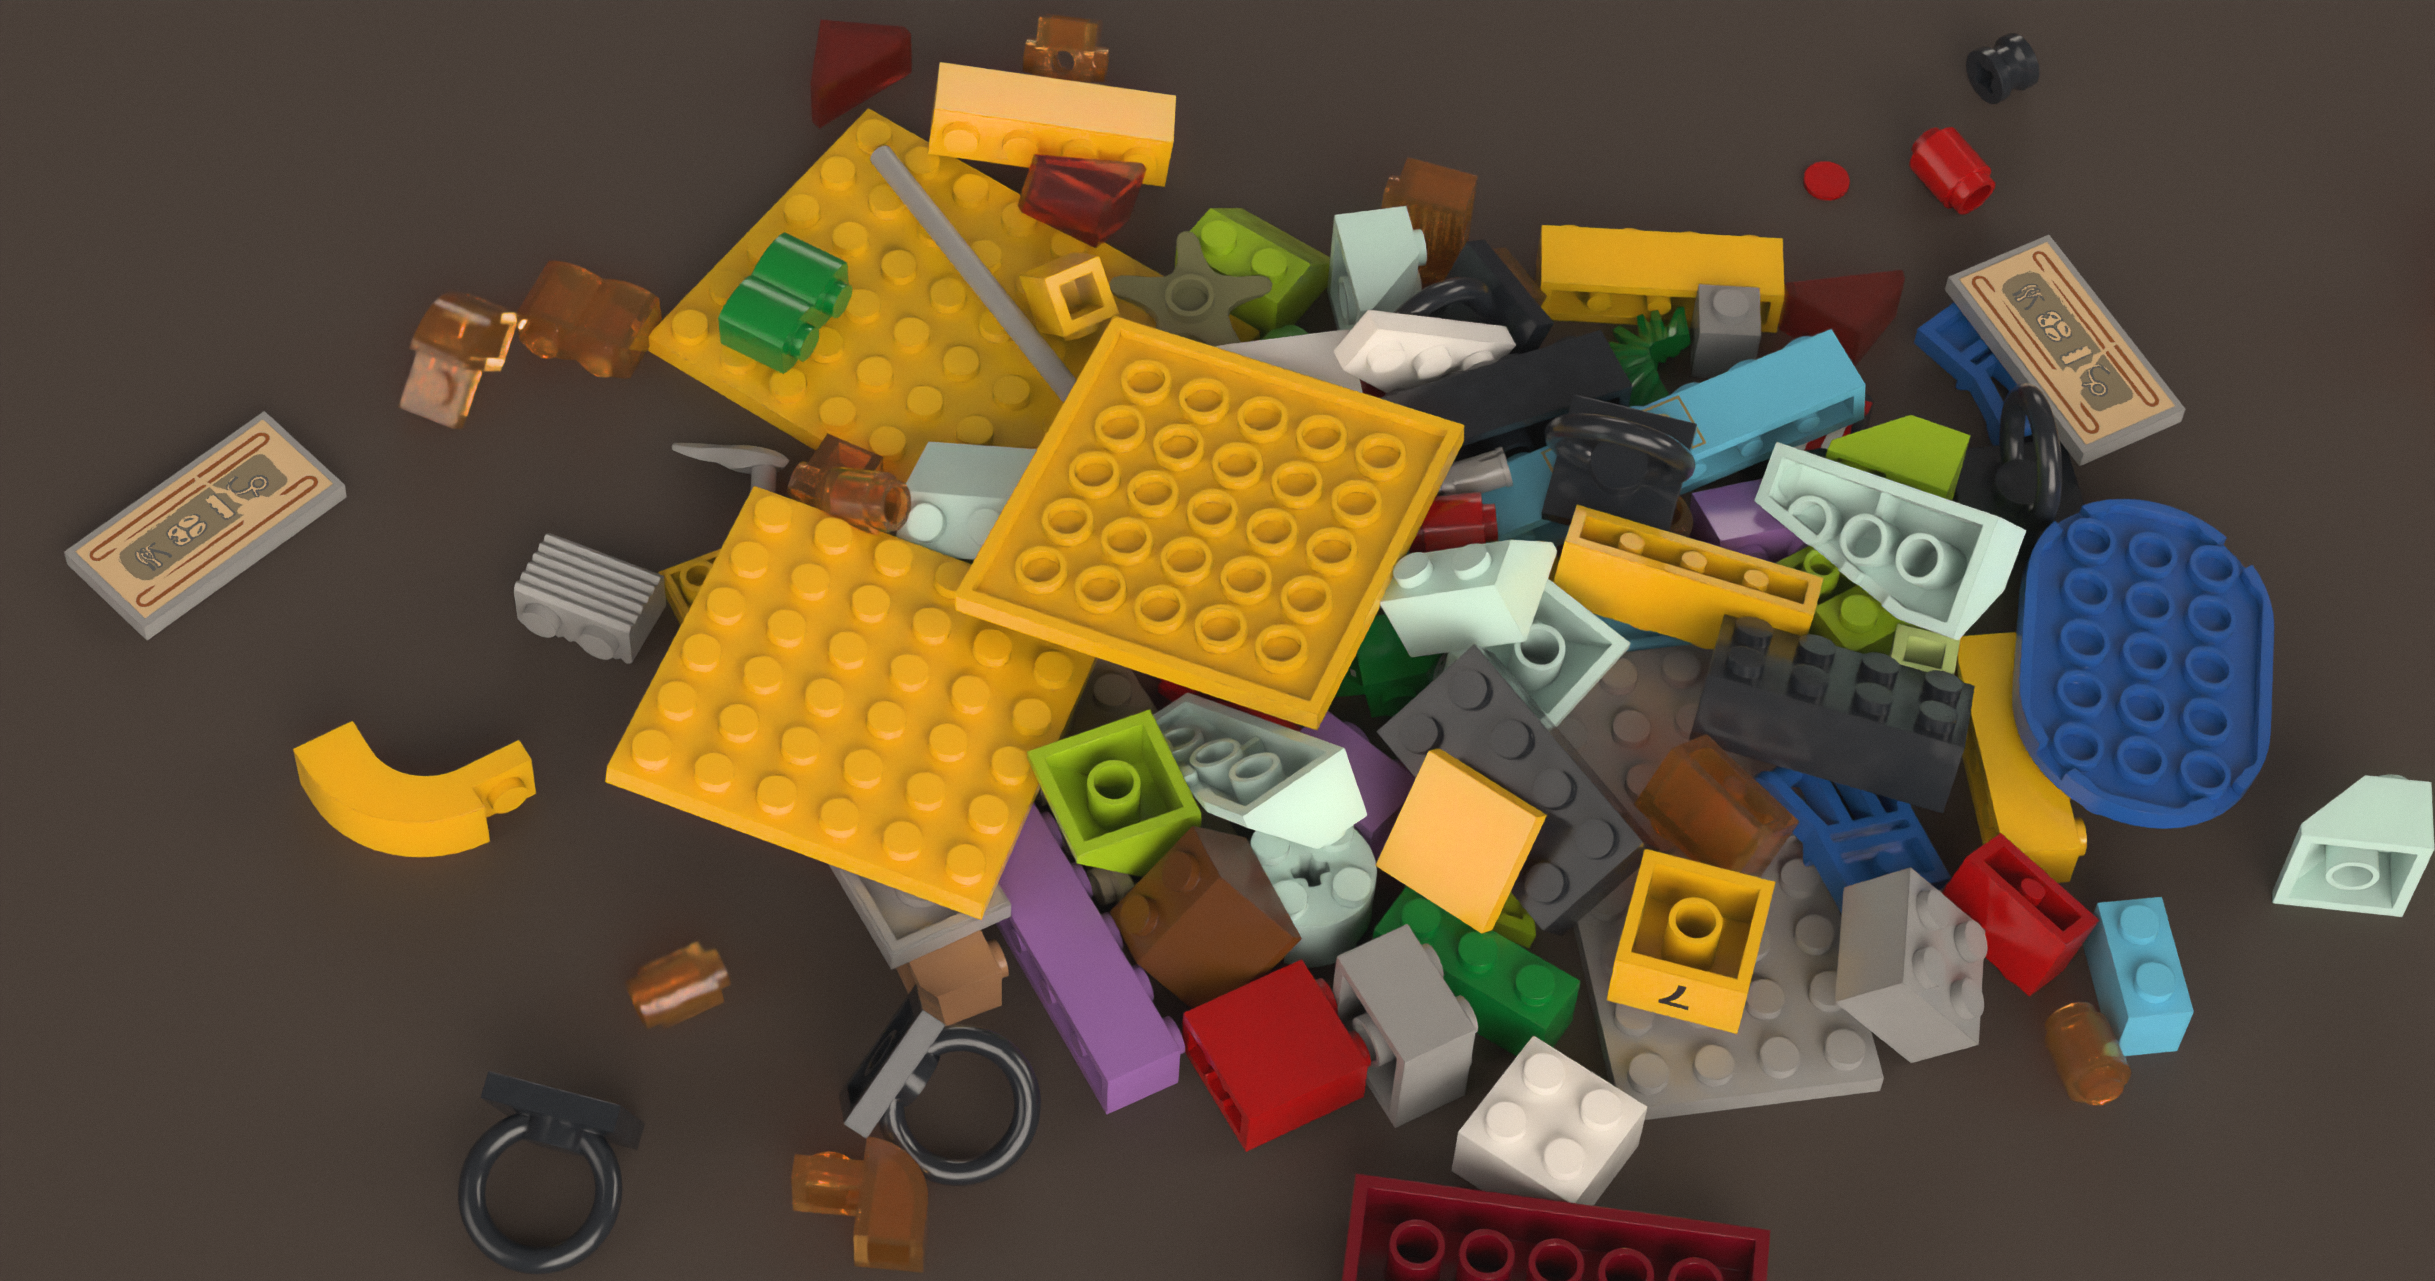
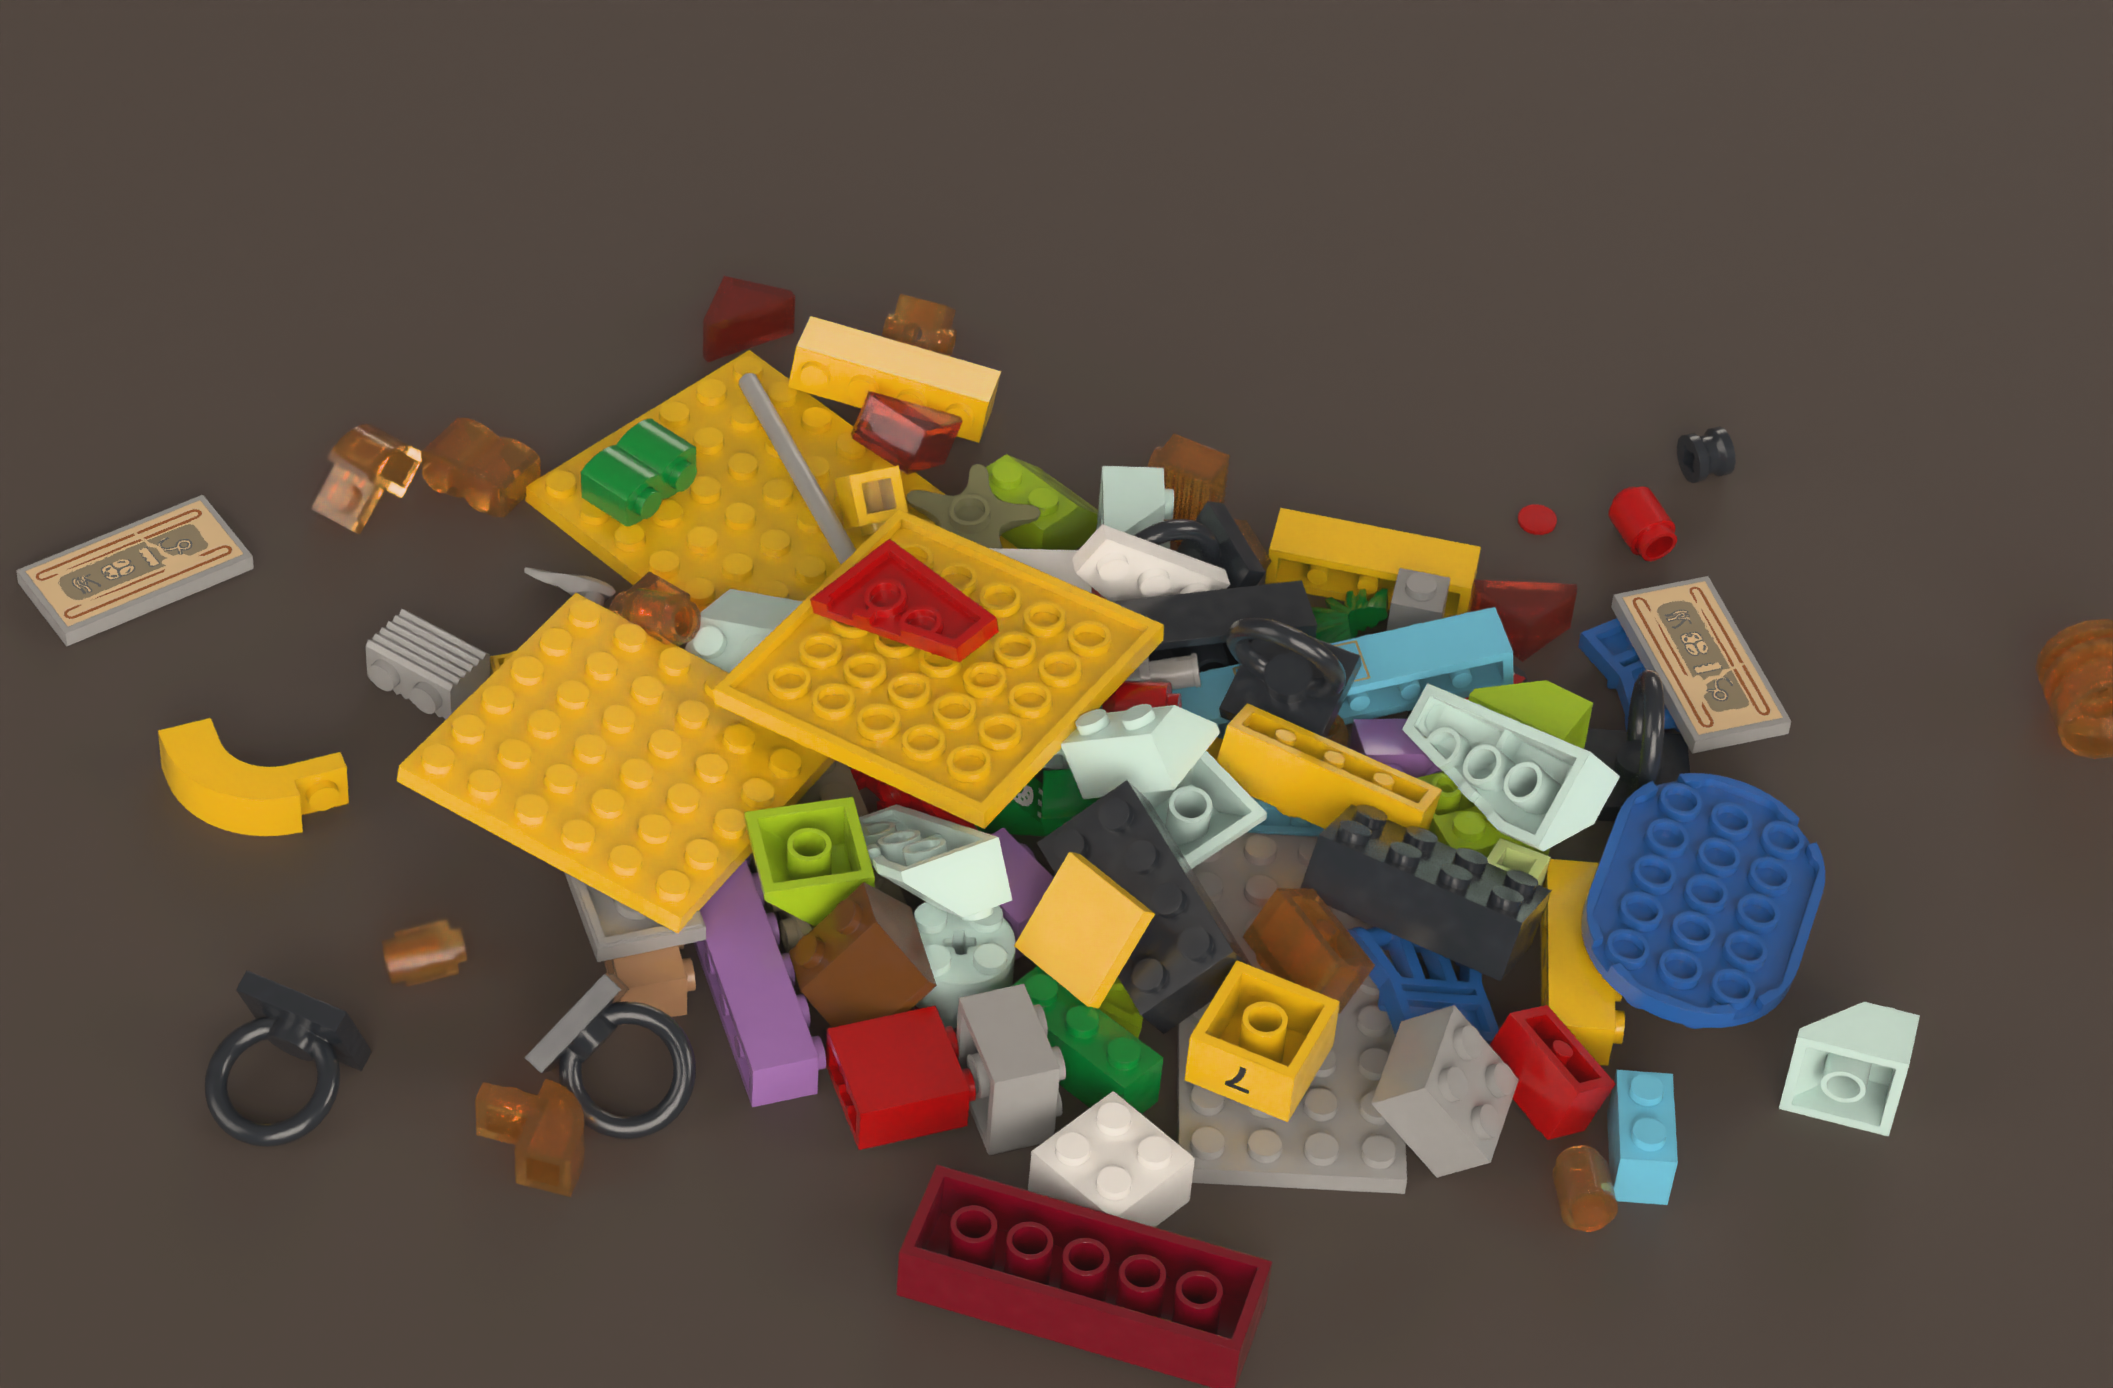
camera: 10 degrees right, 10 degrees down
(1160, 449) = (906, 603): none -> red wing

